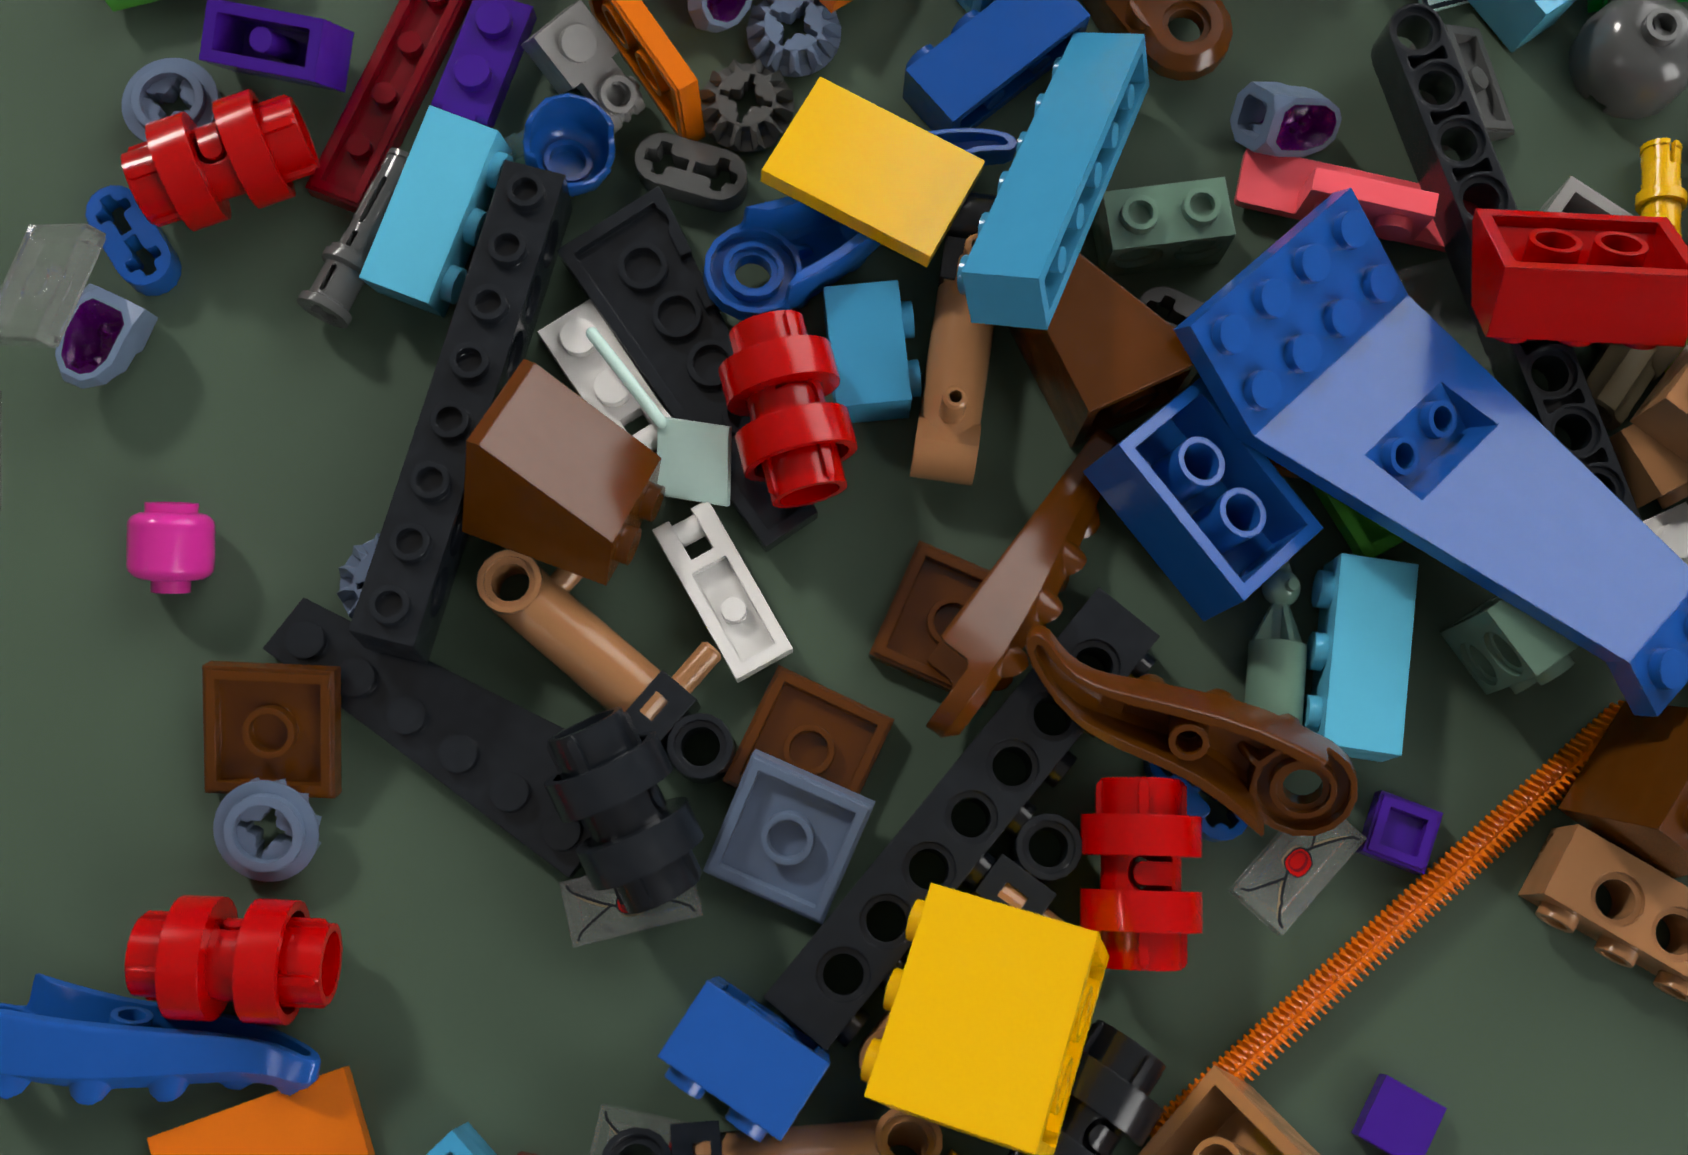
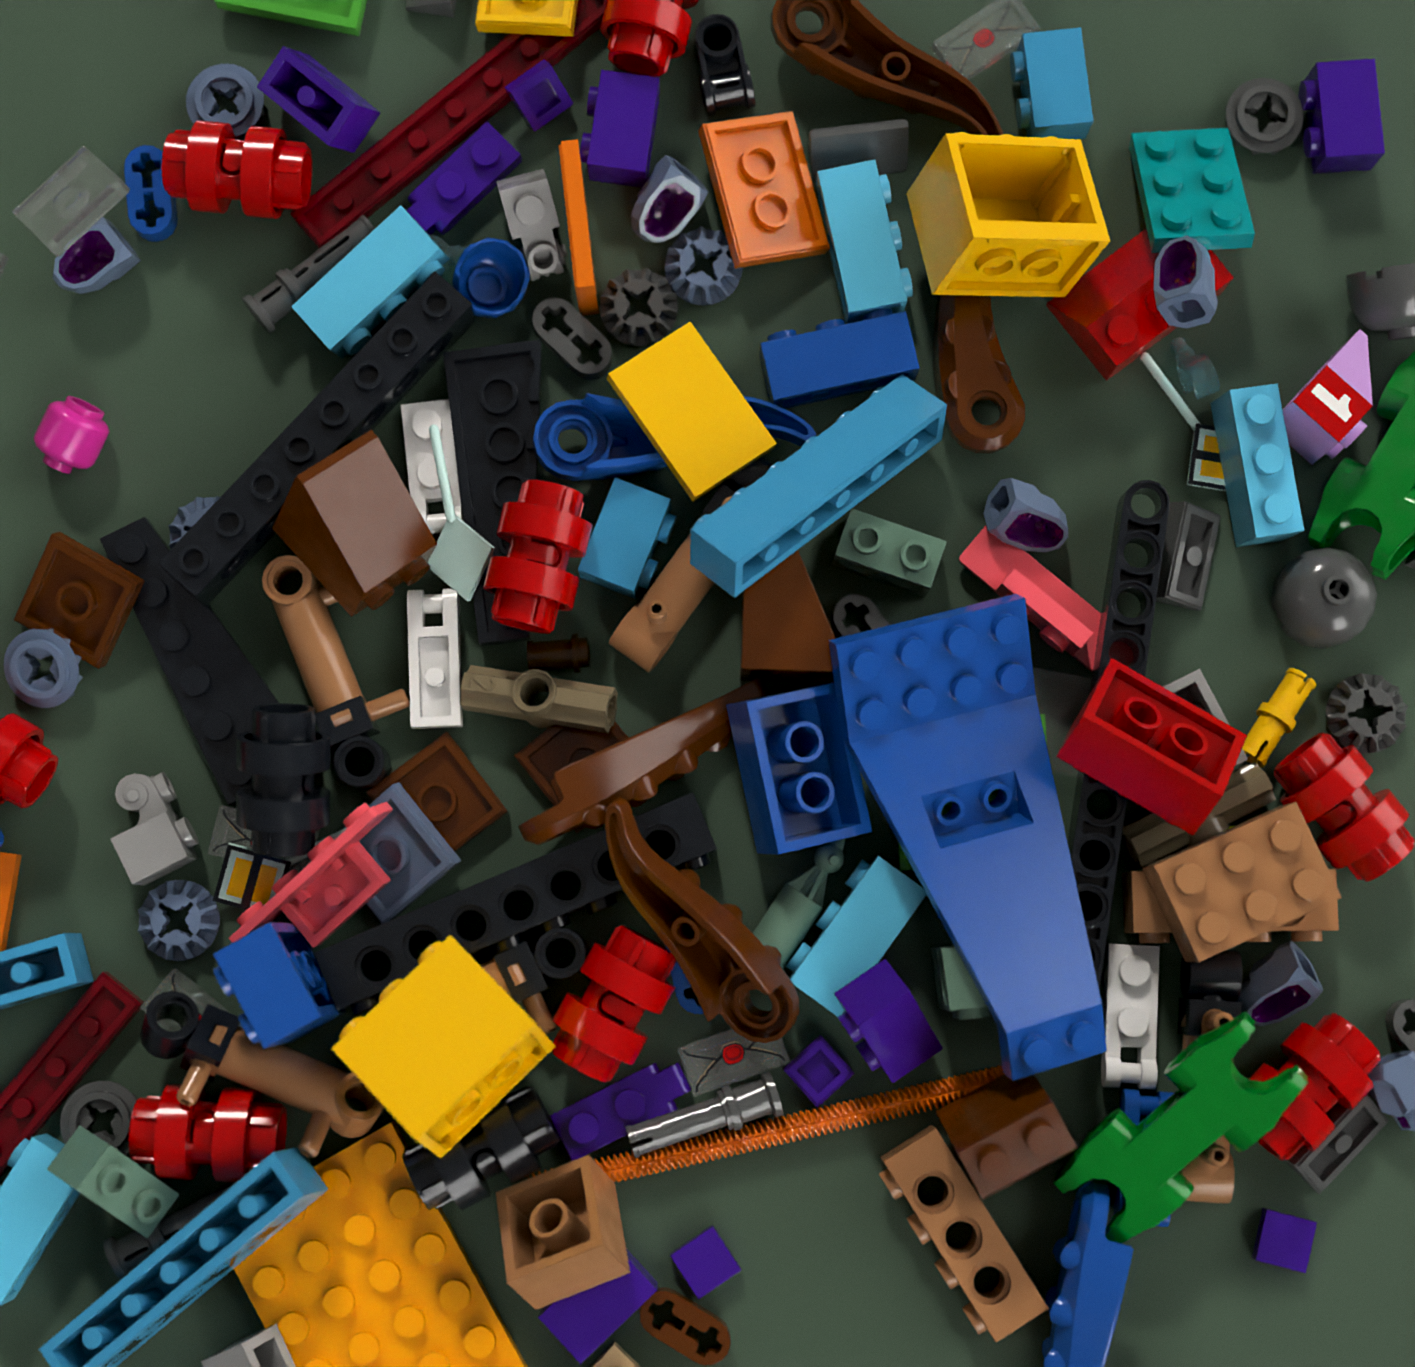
camera: 30 degrees right, 5 degrees up
(507, 960) = (160, 838): none -> light grey brick
(605, 1029) = (202, 920): none -> sand blue gear
(648, 947) = (249, 876): none -> piece
(741, 913) = (329, 887): none -> coral bracket
(828, 585) = (568, 702): none -> dark tan piece
(860, 516) = (559, 654): none -> dark brown pin
(1205, 994) = (605, 1113): none -> dark purple hinge
(1328, 929) = (728, 1109): none -> dark grey pin
(1458, 730) = (888, 1022): none -> dark purple brick

